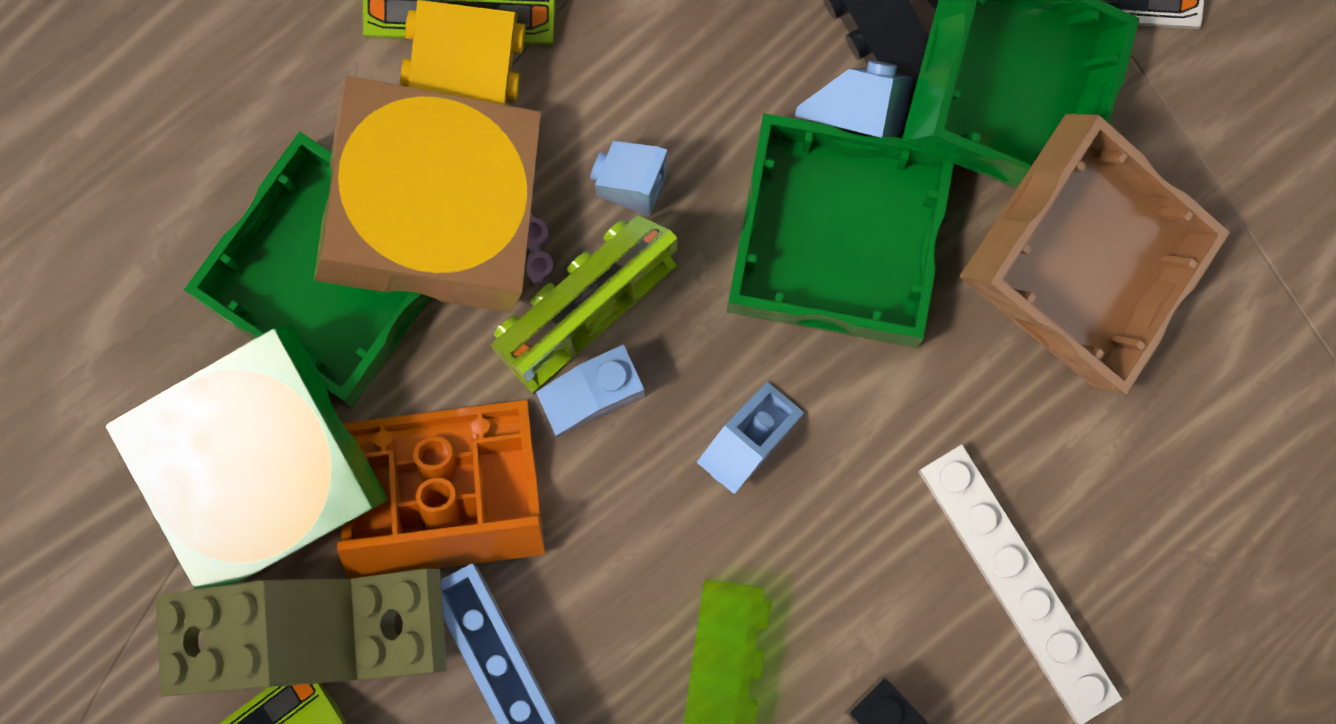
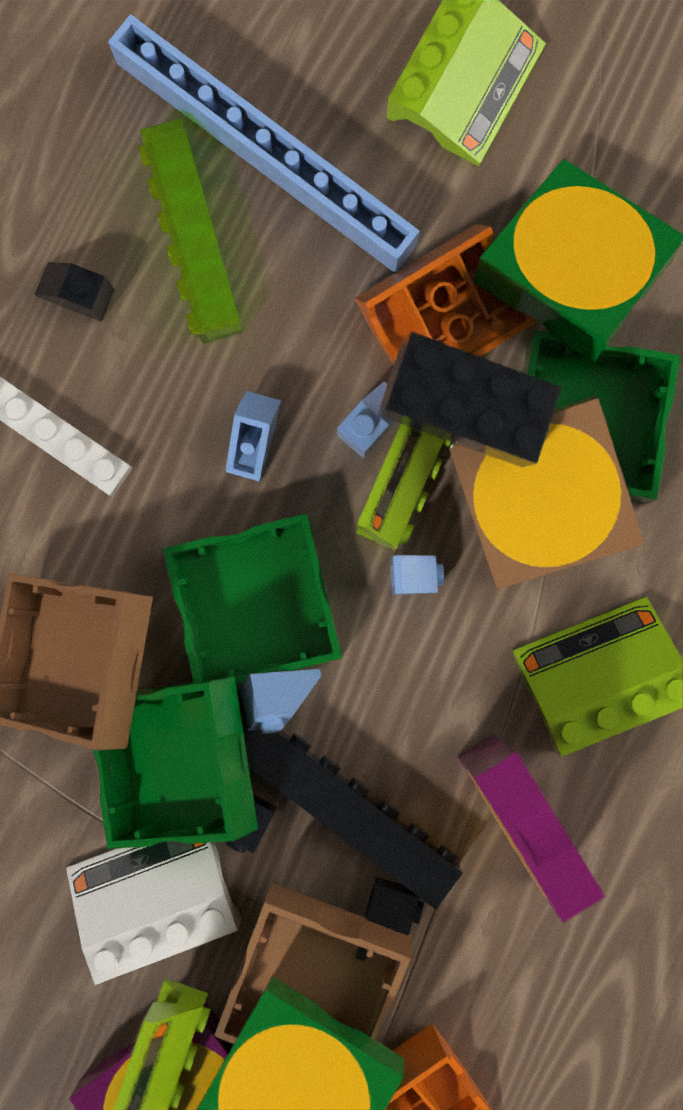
camera: 160 degrees right, 5 degrees up
(300, 632) = (488, 163): olive bracket -> none
(463, 51) = (571, 607): yellow brick -> none
(479, 316) = (469, 400): none -> black brick
(539, 263) = (448, 492): lavender piece -> none

